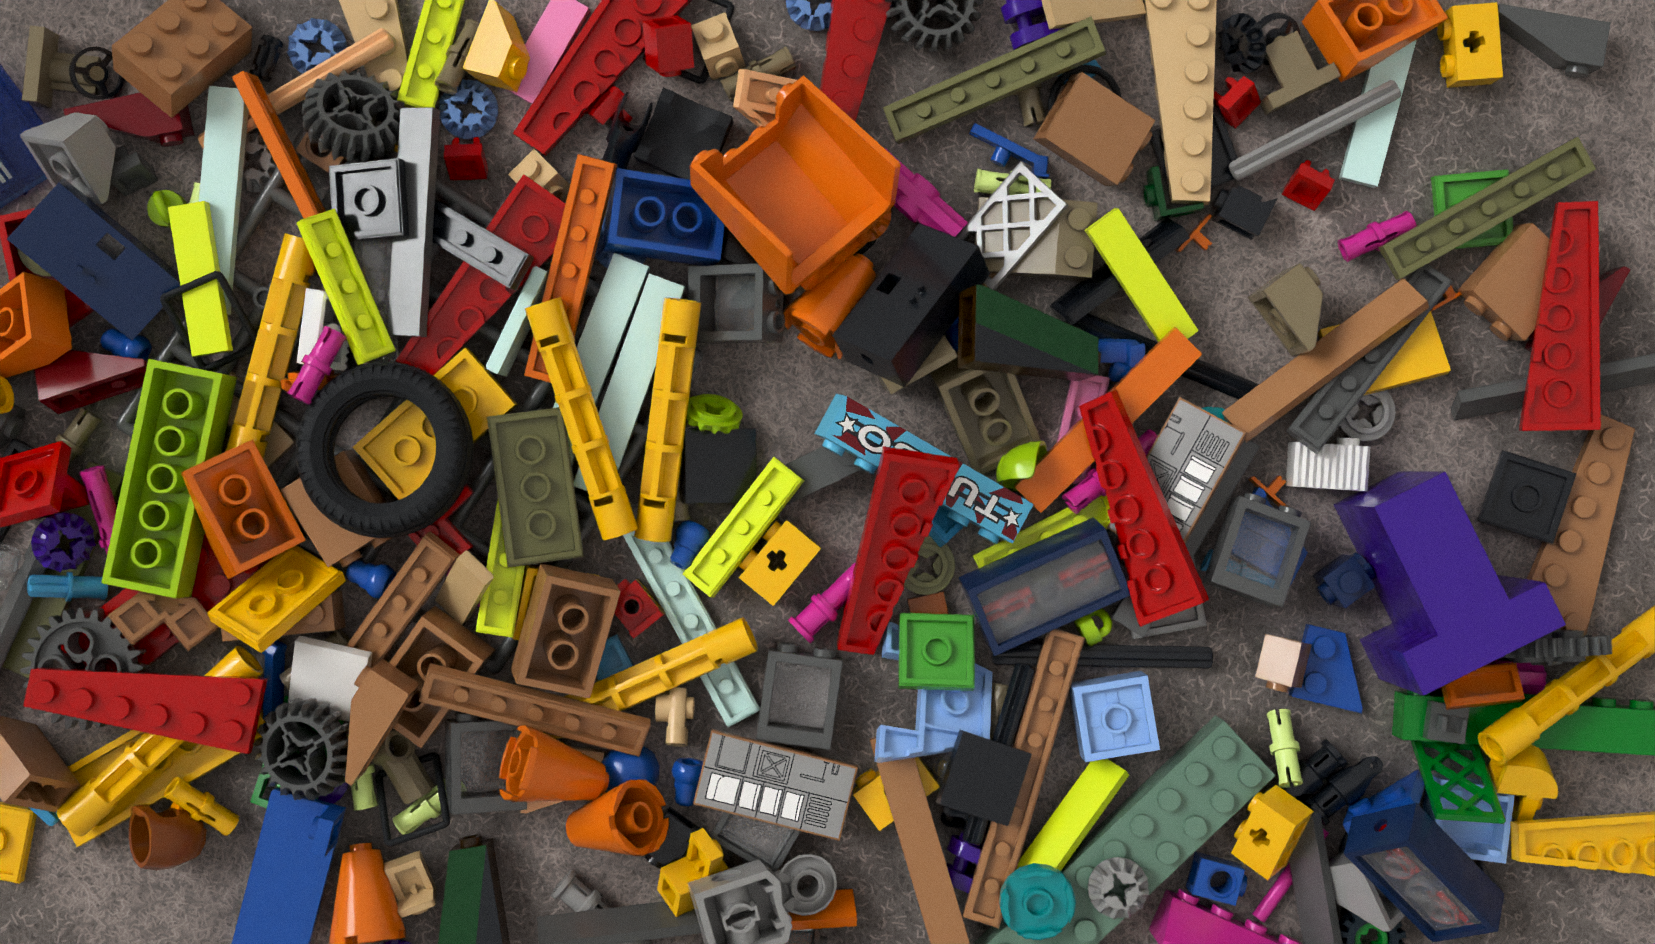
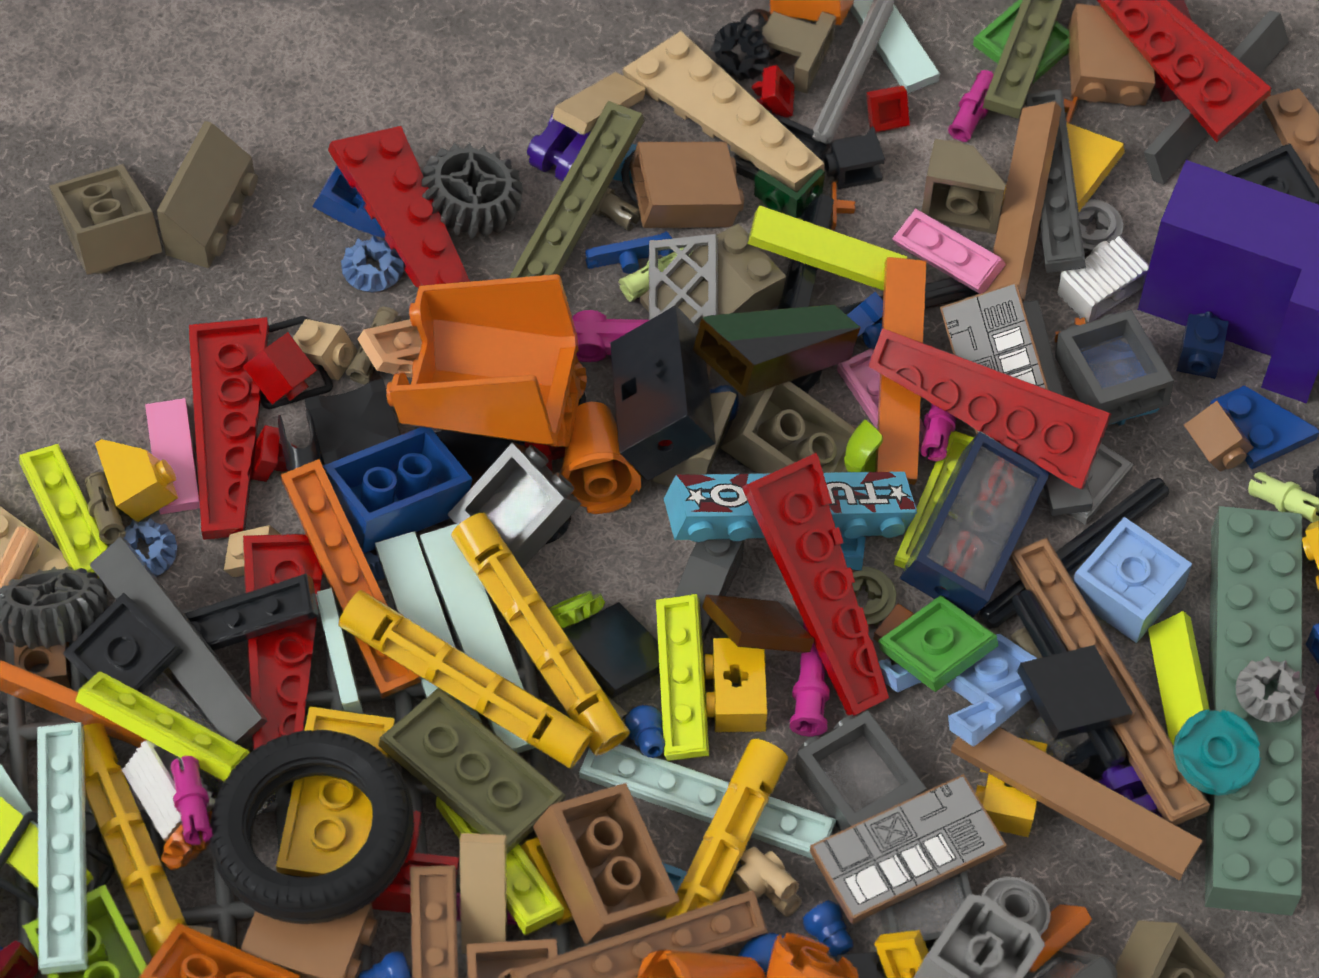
camera: 40 degrees left, 30 degrees down
(213, 322) = (61, 849): none -> light aqua tile
(465, 160) = (181, 581): red tile -> none
(648, 611) = (663, 817): red brick -> none
(825, 535) = (757, 623): none -> reddish brown tile
(1088, 629) = (1042, 527): lime tile -> none
(1234, 350) = (949, 251): none -> bright pink tile

